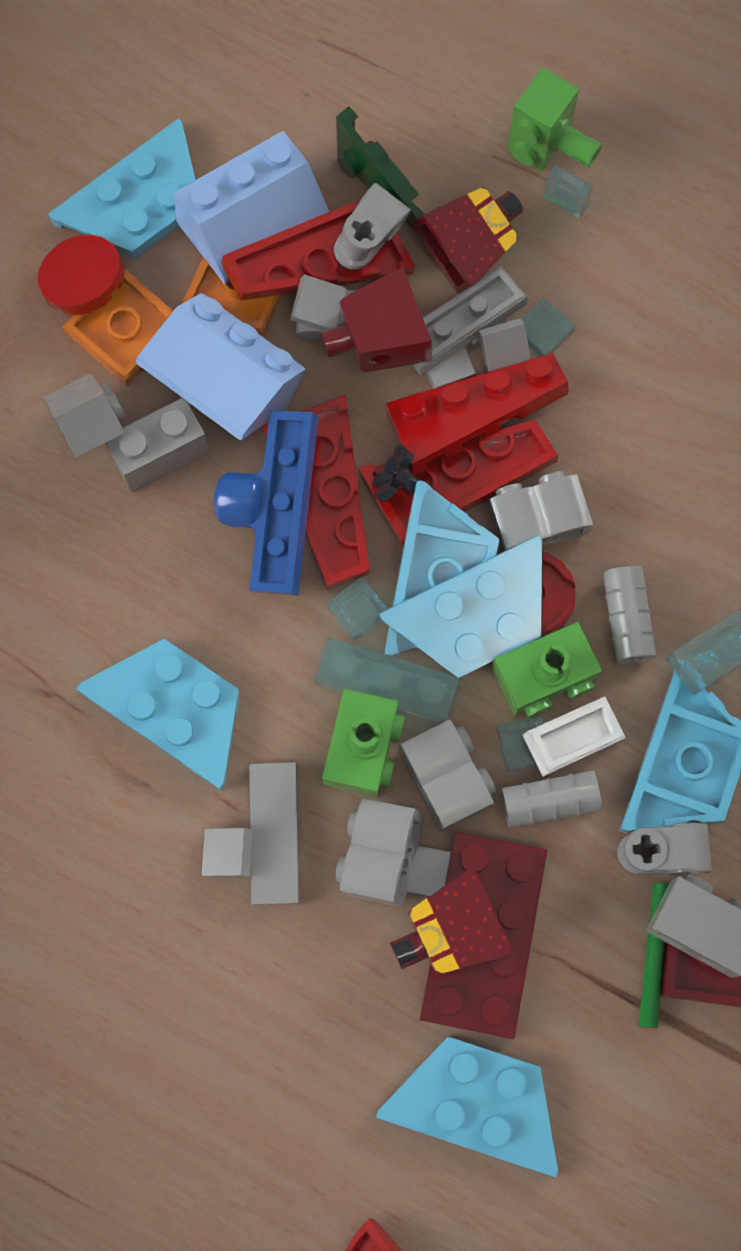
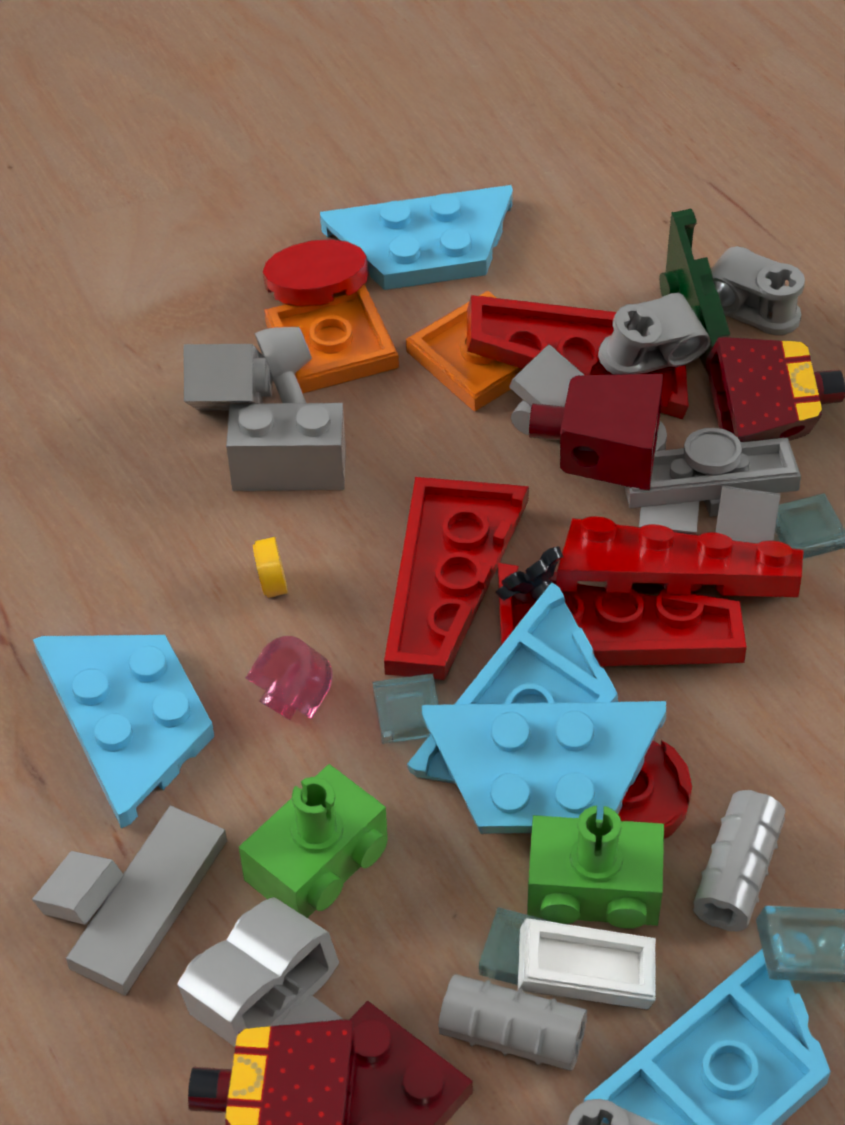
camera: 30 degrees right, 25 degrees down
(109, 367) = (285, 354): none -> light grey bar
(204, 549) = (270, 567): none -> yellow tile
(221, 366) = (406, 398): light blue slope -> none
(248, 200) = (536, 262): light blue slope -> none
(274, 502) = (375, 548): blue plate -> none
(274, 631) = (291, 676): none -> clear pink plate
(366, 671) = (417, 816): clear light blue plate -> none
(407, 136) = (755, 286): none -> light grey piece
(447, 775) = (395, 929): light grey brick -> none
(458, 305) = (712, 451): none -> light grey piece
(550, 509) = (704, 699): light grey brick -> none

